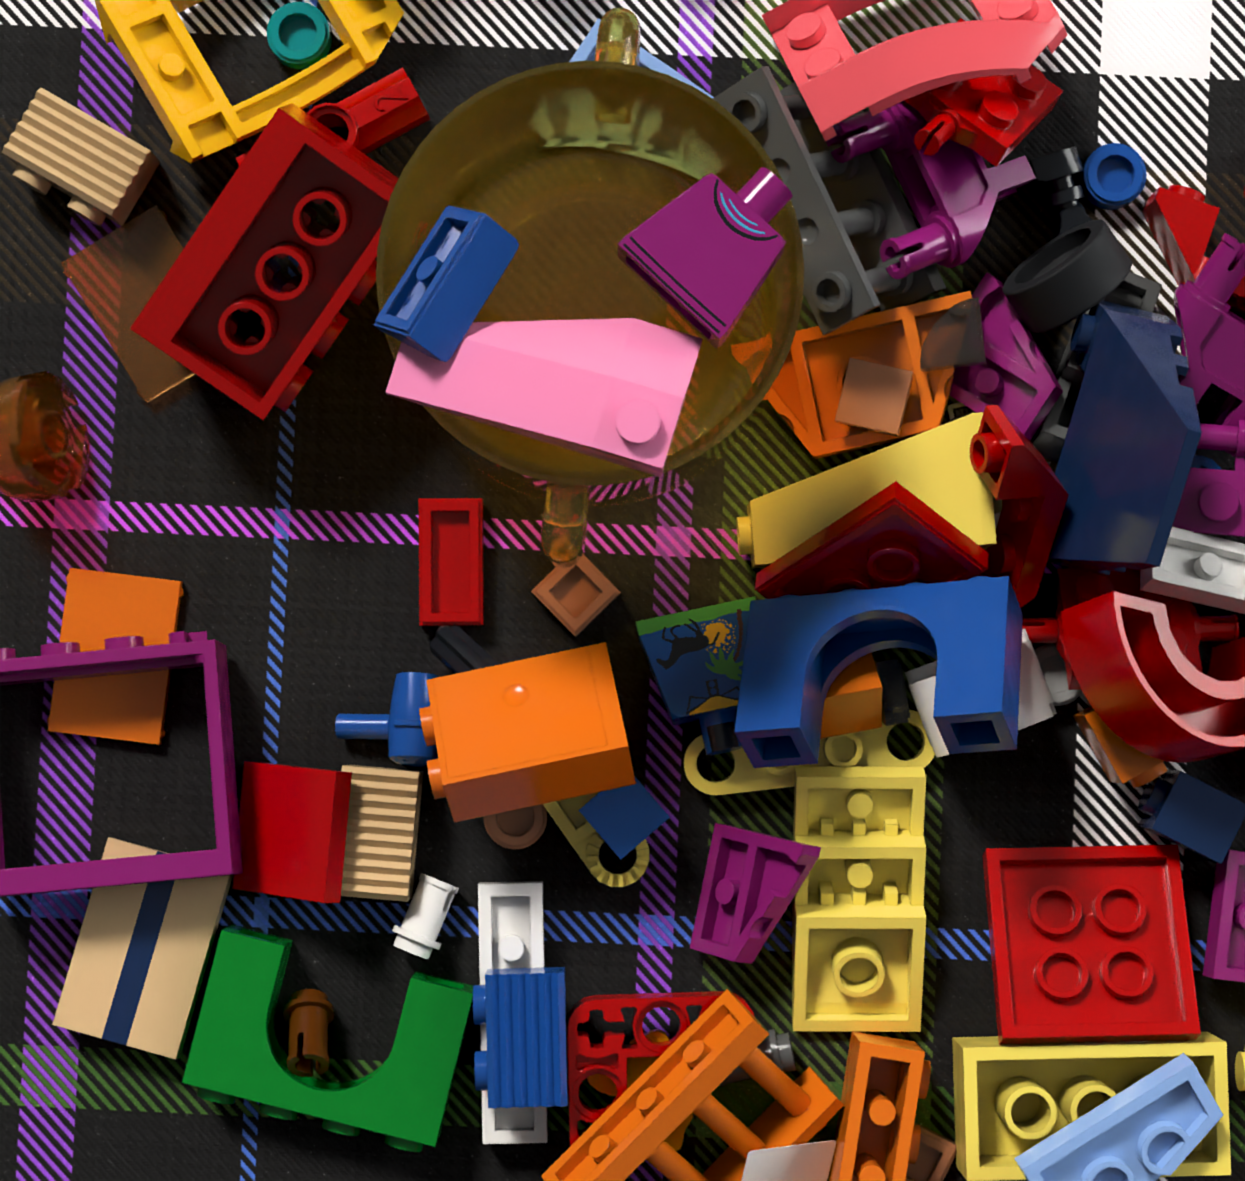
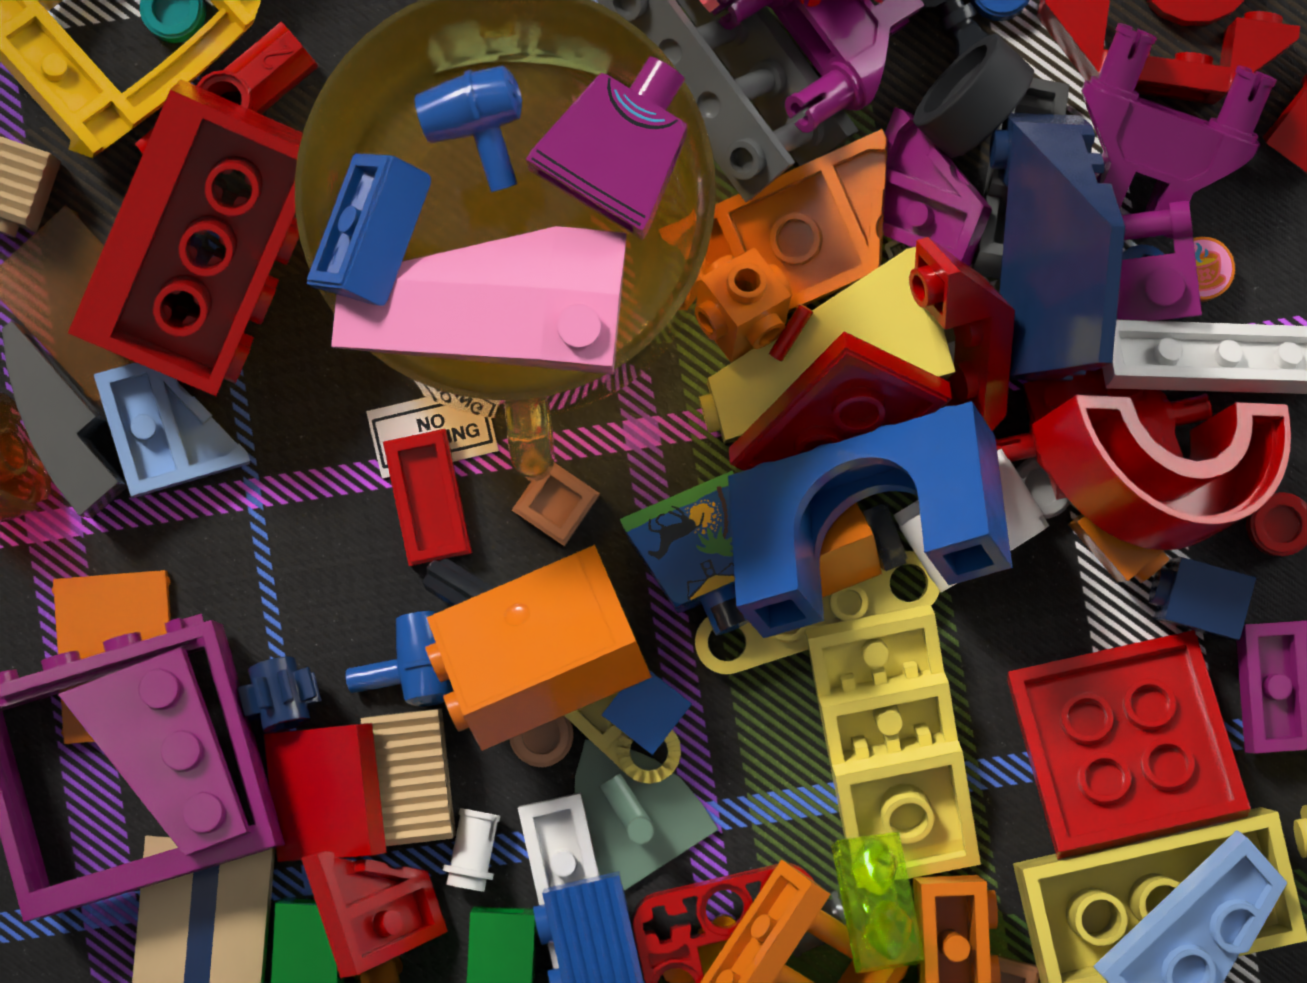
camera: 10 degrees left, 0 degrees up
(106, 417) = (60, 424): none -> dark grey slope
(144, 756) = (164, 747): none -> magenta wing
(205, 444) = (162, 430): none -> light blue wing
(266, 725) = (279, 694): none -> dark blue gear
(314, 956) = (372, 909): none -> red wing
(502, 506) = (467, 433): none -> sticker
(575, 182) = (475, 107): none -> blue piece
(591, 923) = (637, 823): none -> sand green shield
(747, 890) = (782, 760): magenta wing -> none
(799, 434) = (743, 303): none -> orange brick
(813, 1050) = (877, 902): none -> clear neon green tile
(841, 472) = (791, 332): none -> red piece
(874, 397) = (810, 251): nougat tile -> none
(955, 339) = (876, 179): clear smoke tile -> none

